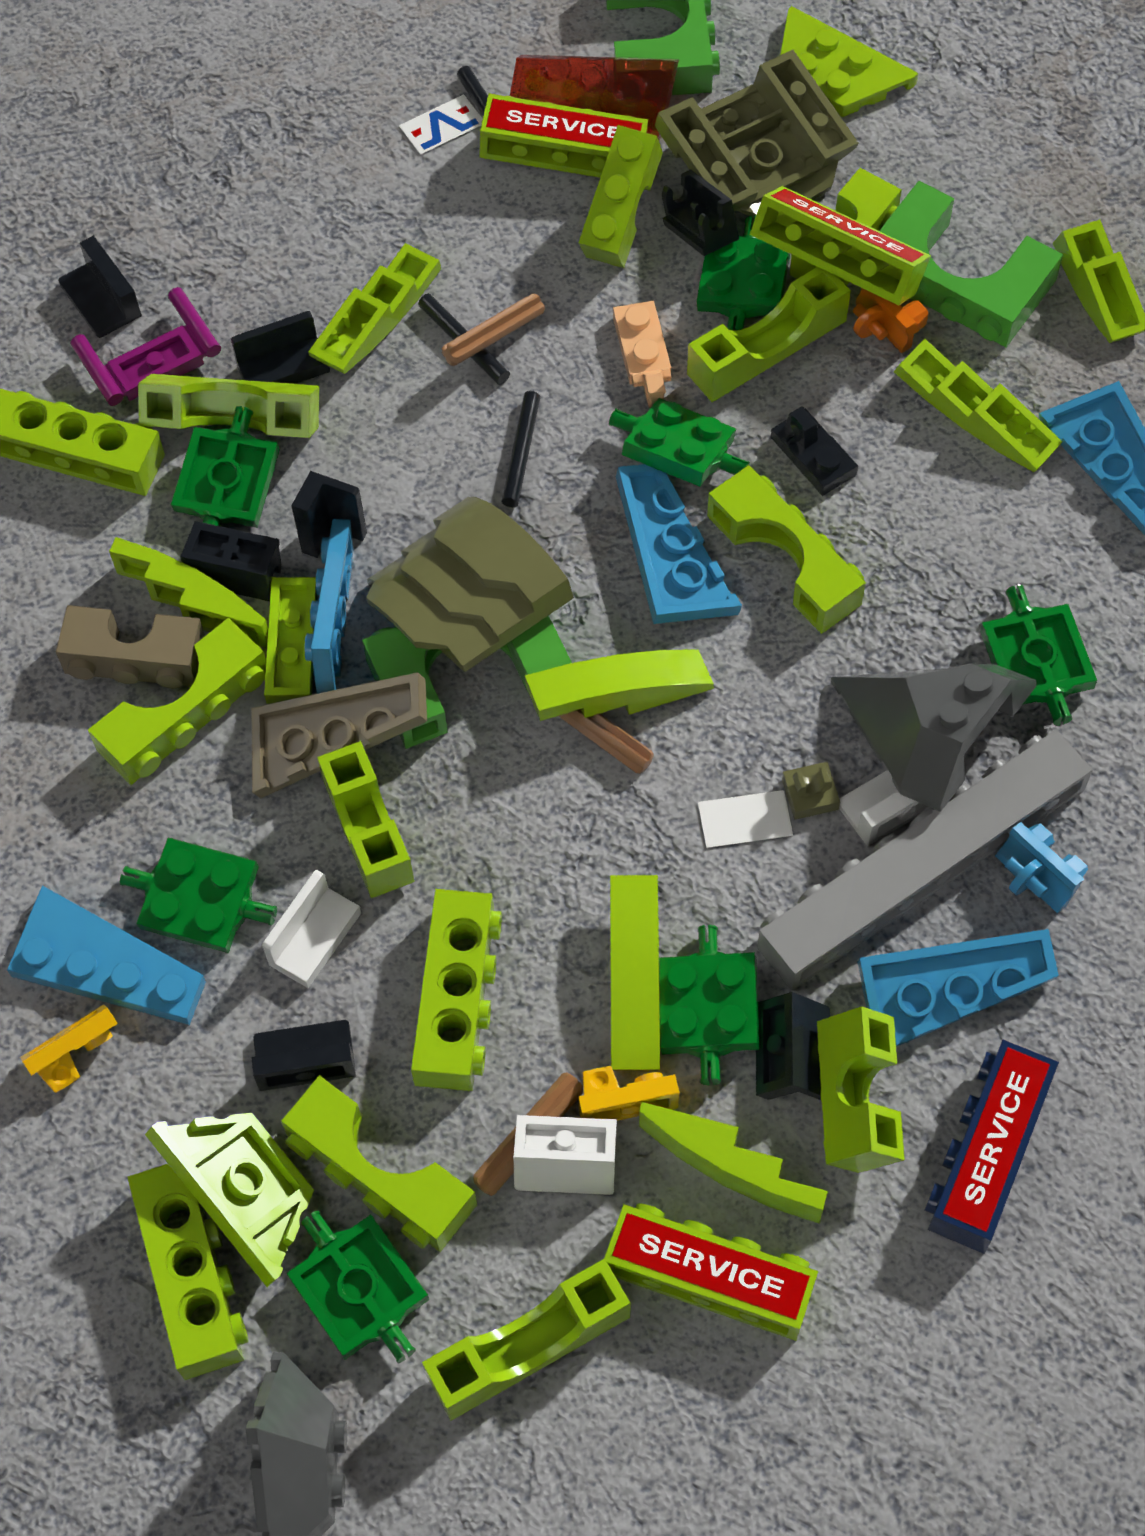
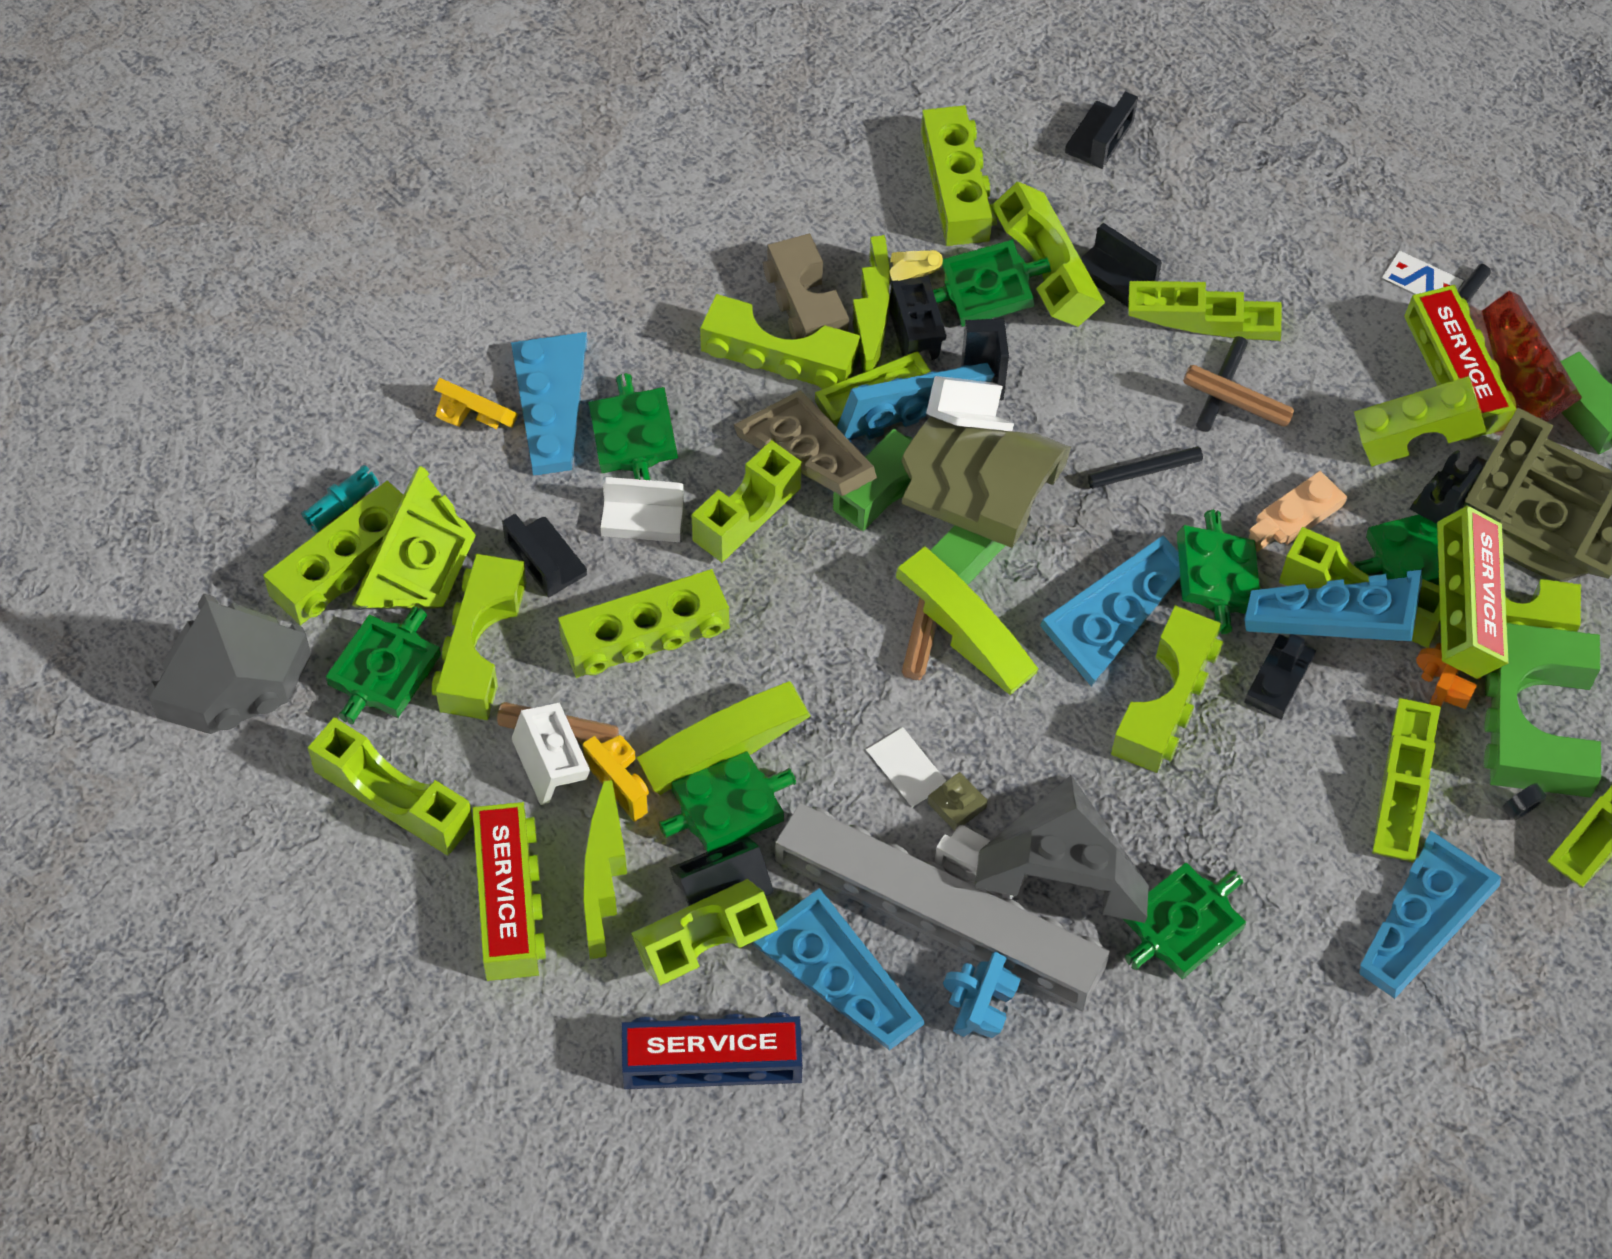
camera: 60 degrees right, 5 degrees down
(107, 1243) = (340, 498): none -> teal pin
(168, 354) = (1066, 195): magenta plate -> none
(171, 528) = (914, 264): none -> light yellow helmet
(373, 565) = (967, 403): none -> white panel
(803, 345) = (1359, 610): none -> dark azure wing
(1047, 327) = (1524, 801): none -> black tile

